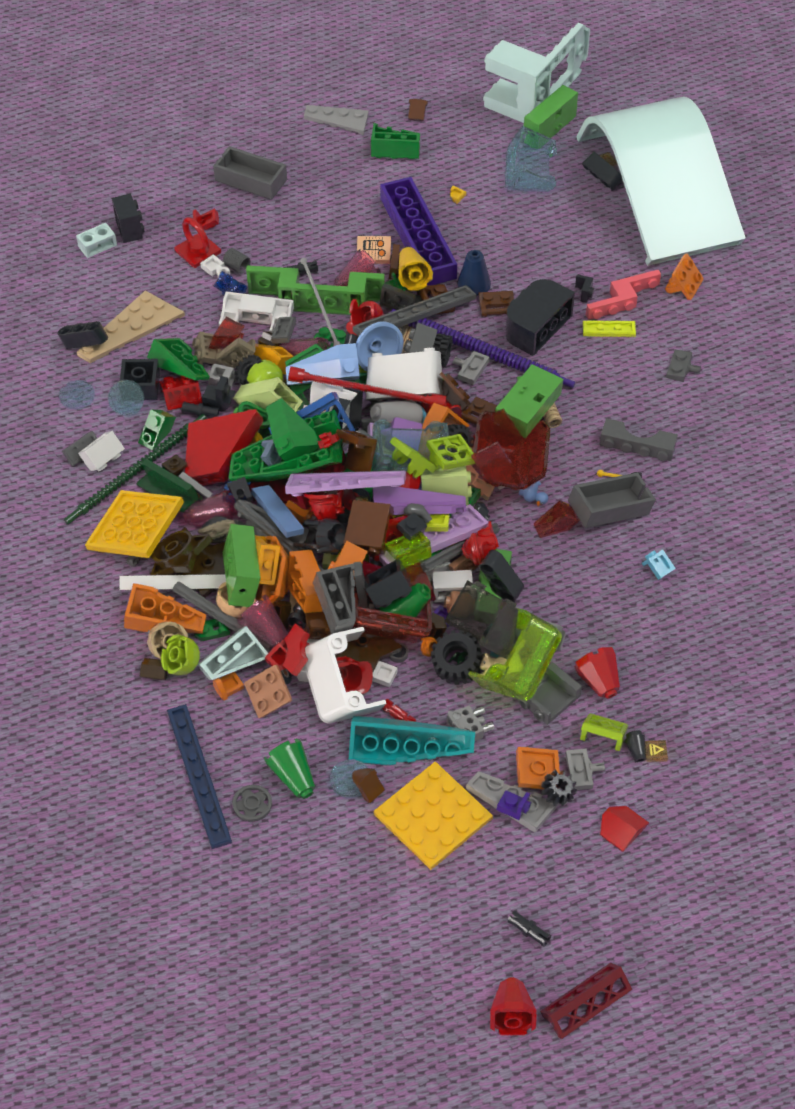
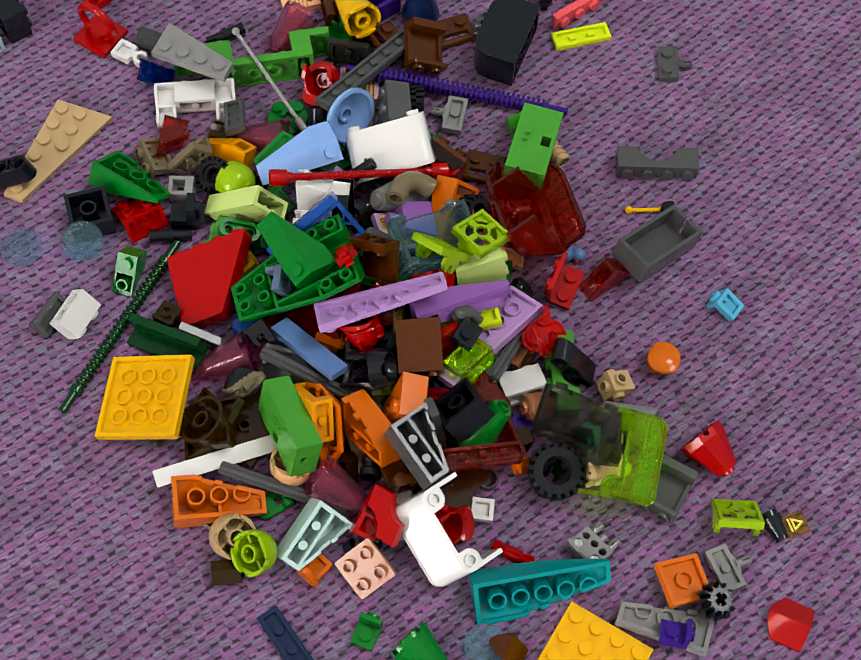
camera: 20 degrees left, 10 degrees up
(254, 741) = (367, 631): none -> green bracket
(259, 270) = (187, 52): none -> light grey wing
(379, 382) = (368, 164): none -> black pin
(405, 402) = (410, 182): none -> dark tan cylinder
(464, 306) = (424, 45): none -> reddish brown panel
(516, 514) = (563, 283): none -> red bracket
(535, 602) = (615, 385): none -> tan brick
(585, 592) = (663, 358): none -> orange hair

